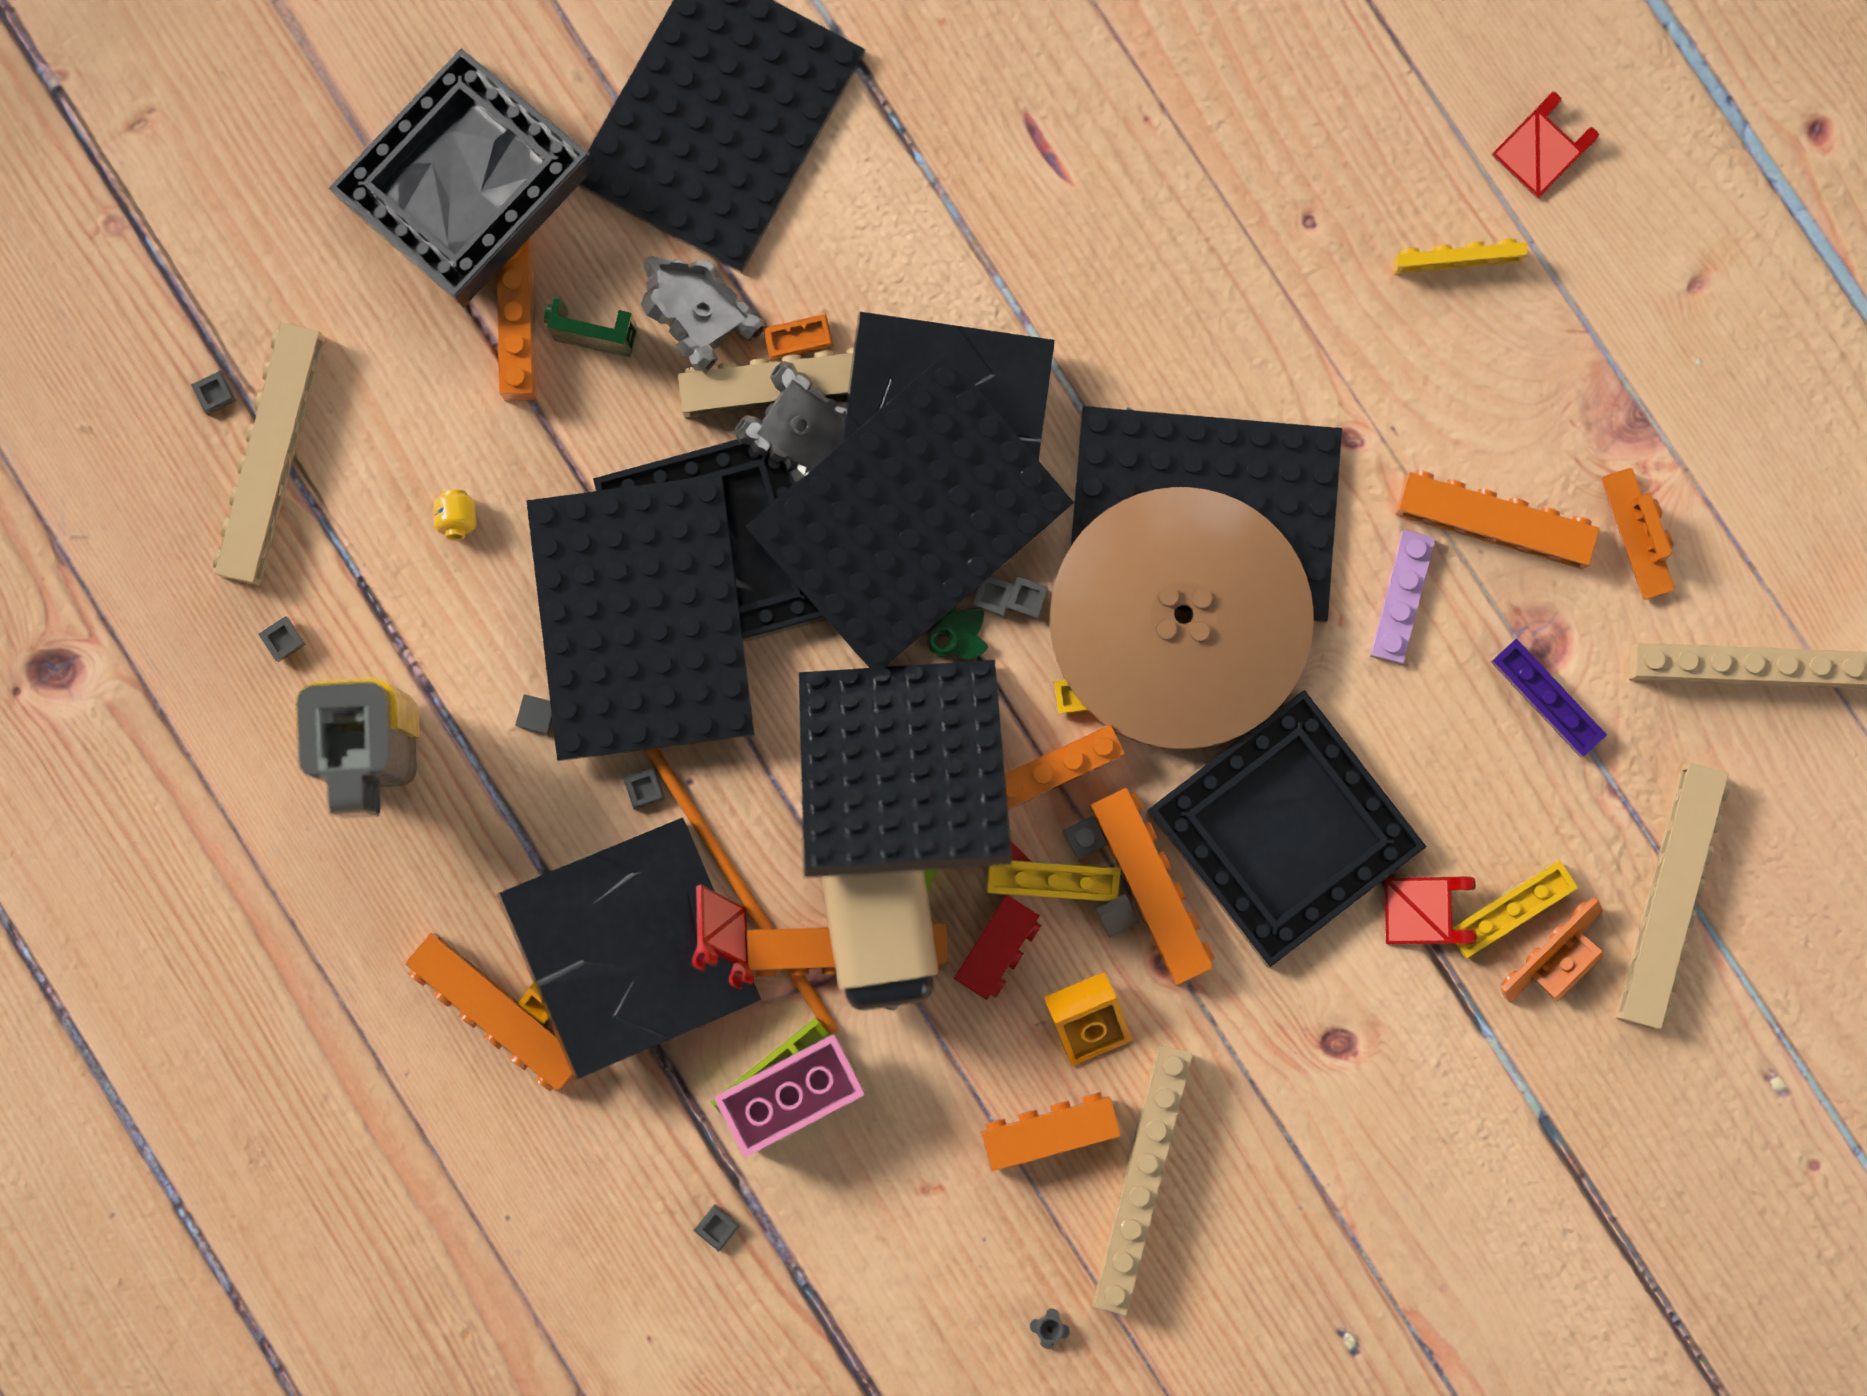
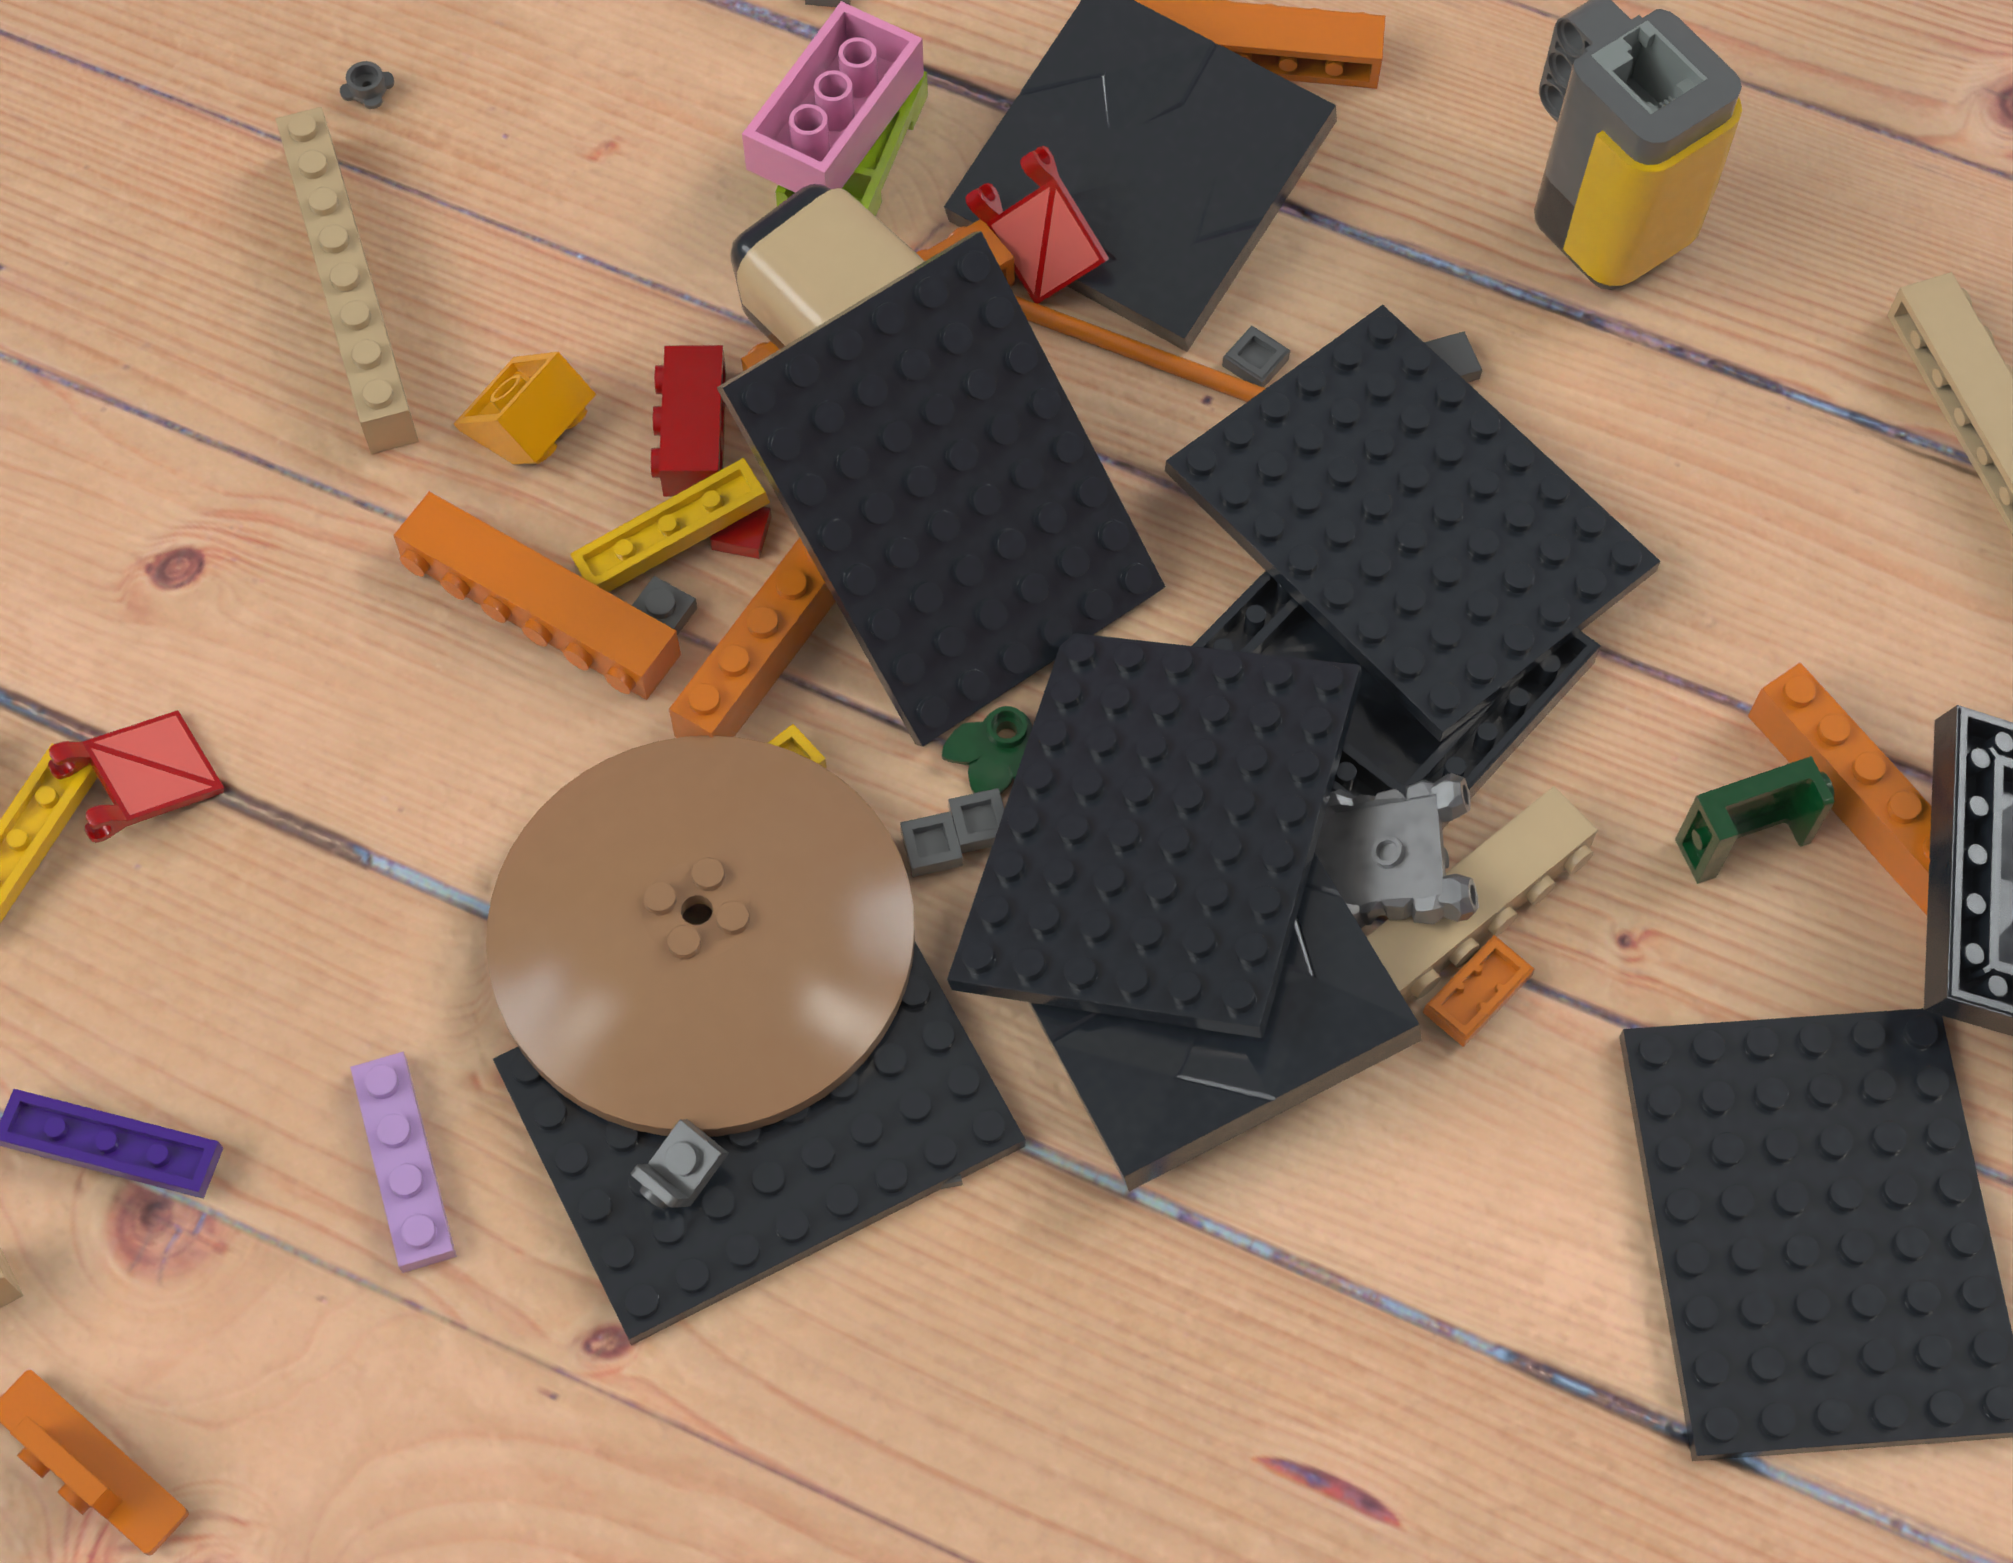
camera: 145 degrees right, 20 degrees down
(282, 639) = (1811, 266): dark grey plate -> none
(454, 514) = (1732, 510): yellow head -> none
(696, 308) = (1642, 933): flat silver shield -> none
(1051, 1132) = (491, 261): orange brick -> none
(1117, 915) = (563, 537): dark grey tile -> none
(1270, 489) = (679, 1167): none -> bracket
(1286, 829) = (392, 767): black tile -> none
(1497, 520) = (315, 1345): orange brick -> none

